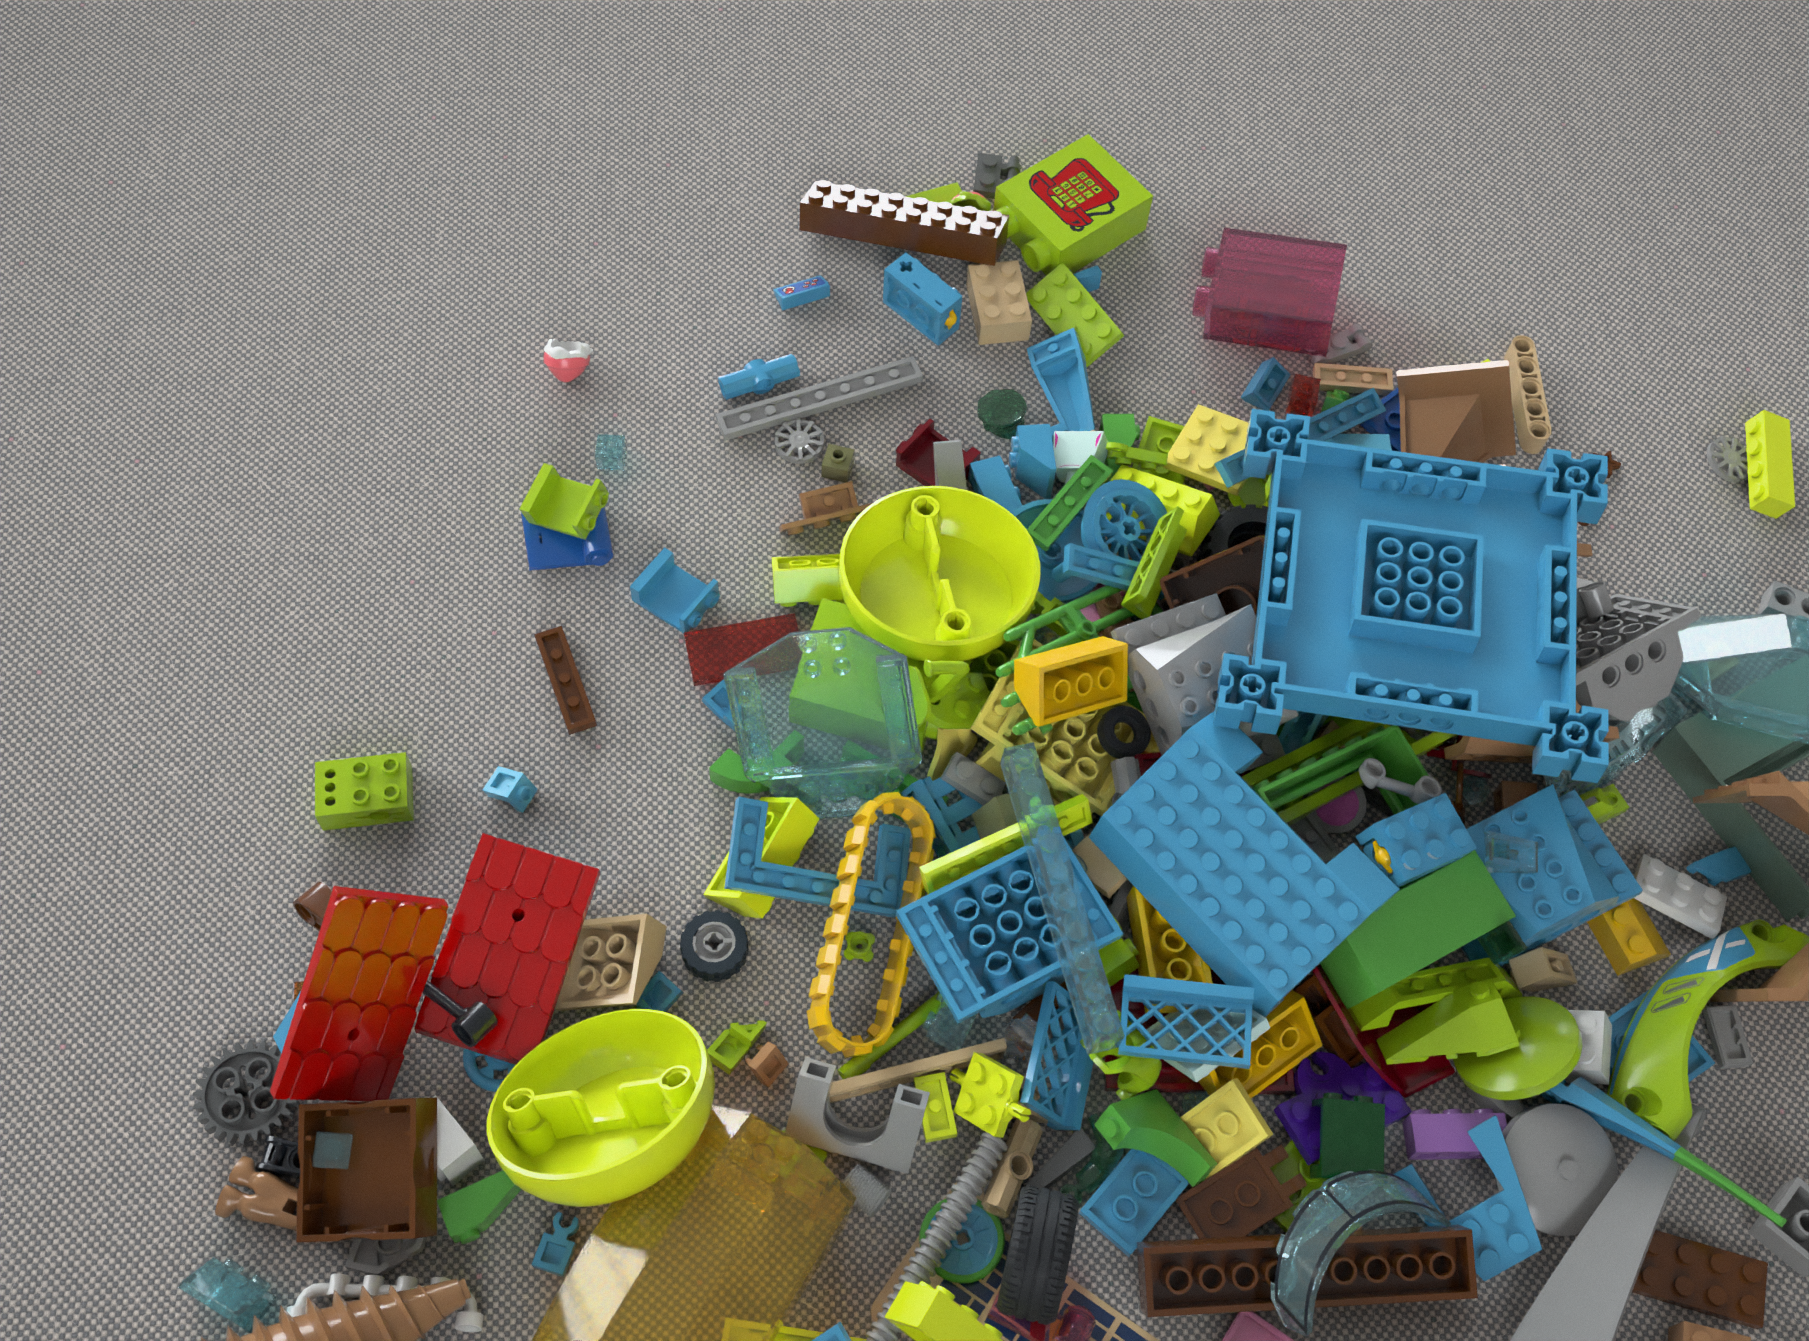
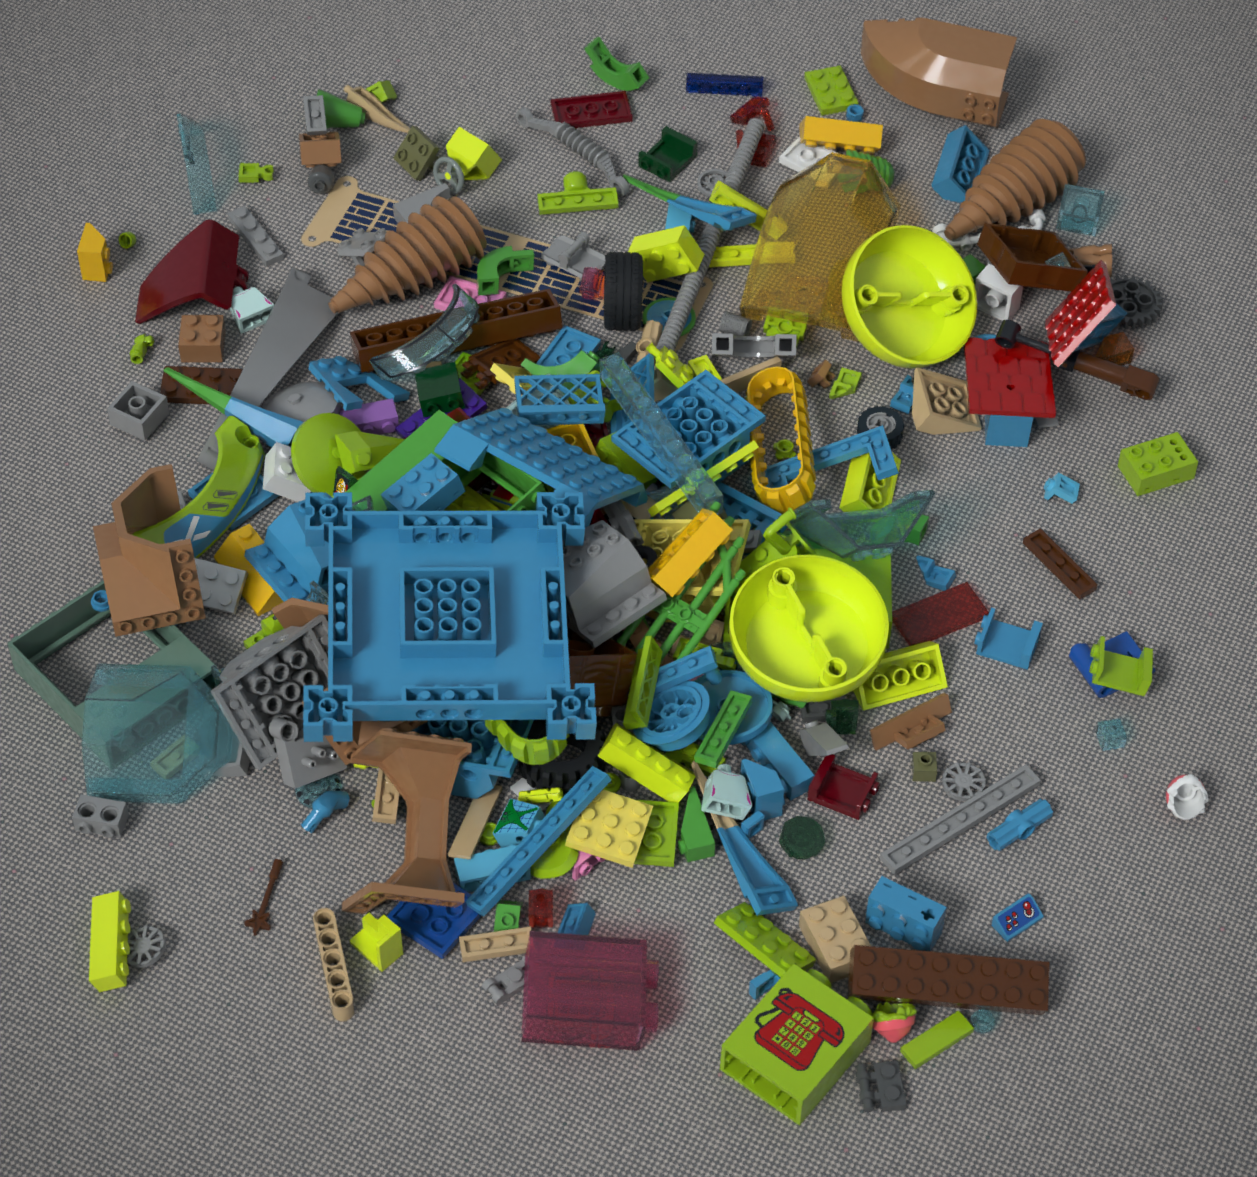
camera: 170 degrees right, 10 degrees down
(1126, 455) = (678, 798): lime hinge -> none

